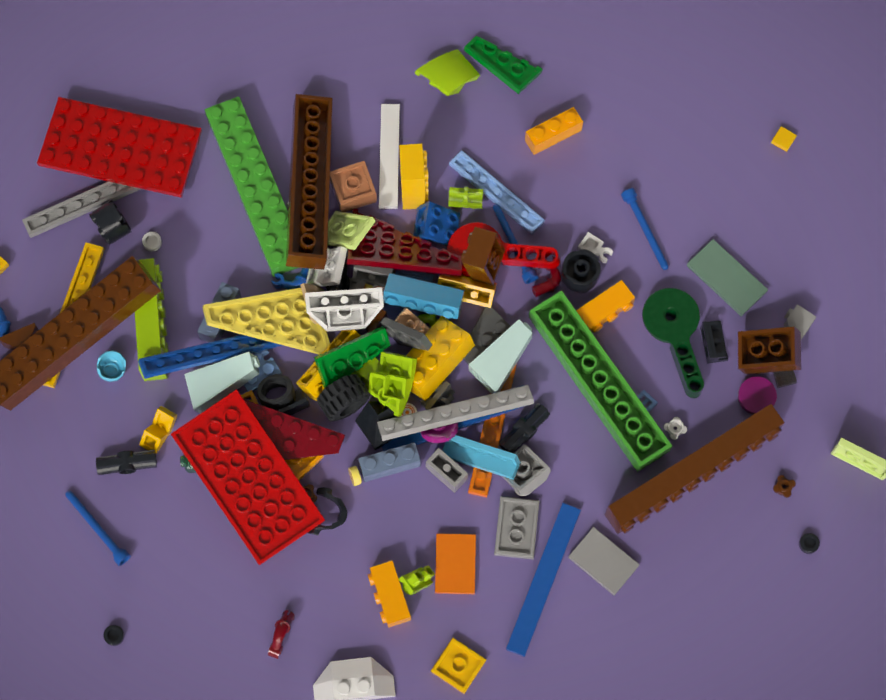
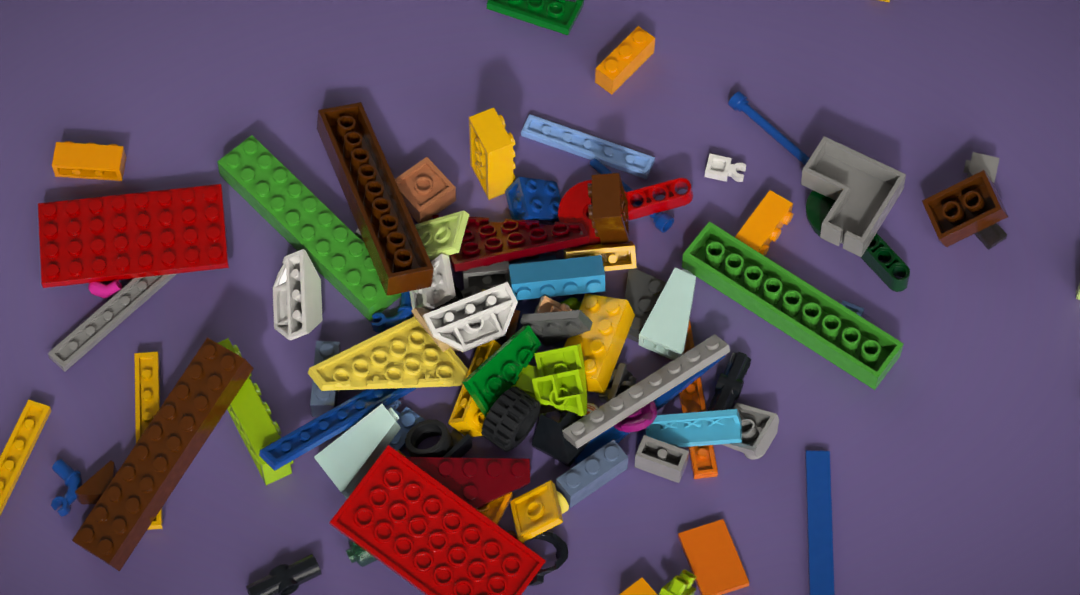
camera: 20 degrees left, 10 degrees down
(81, 182) = (104, 291): none -> dark pink arm
(110, 222) = (157, 320): black brick -> none
(111, 73) = (89, 161): none -> light orange brick
(111, 366) = (222, 478): medium azure hair -> none
(151, 241) = (211, 328): white tile -> none
(159, 430) = (307, 530): yellow slope -> none
(223, 240) = (297, 296): none -> white wedge
(334, 478) = (536, 511): none -> yellow tile
(389, 156) = (449, 147): white tile -> none
(449, 72) = (481, 36): lime slope -> none
(465, 197) = (556, 161): lime hips -> none
(516, 527) = (765, 496): light grey tile -> none
(549, 285) = (690, 222): dark red piece -> none
(571, 268) = (720, 196): black brick -> none
(603, 561) = (878, 498): light grey tile -> none
(676, 422) = (896, 322): white plate -> none
(692, 310) = (861, 189): none -> light grey piece
(694, 469) = (937, 362): reddish brown brick -> none
(713, 342) = (900, 228): black hinge -> none
(727, 277) = (887, 148): sand green tile -> none
(756, 394) = (970, 264): magenta tile -> none
(778, 488) = (1042, 355): reddish brown plate -> none

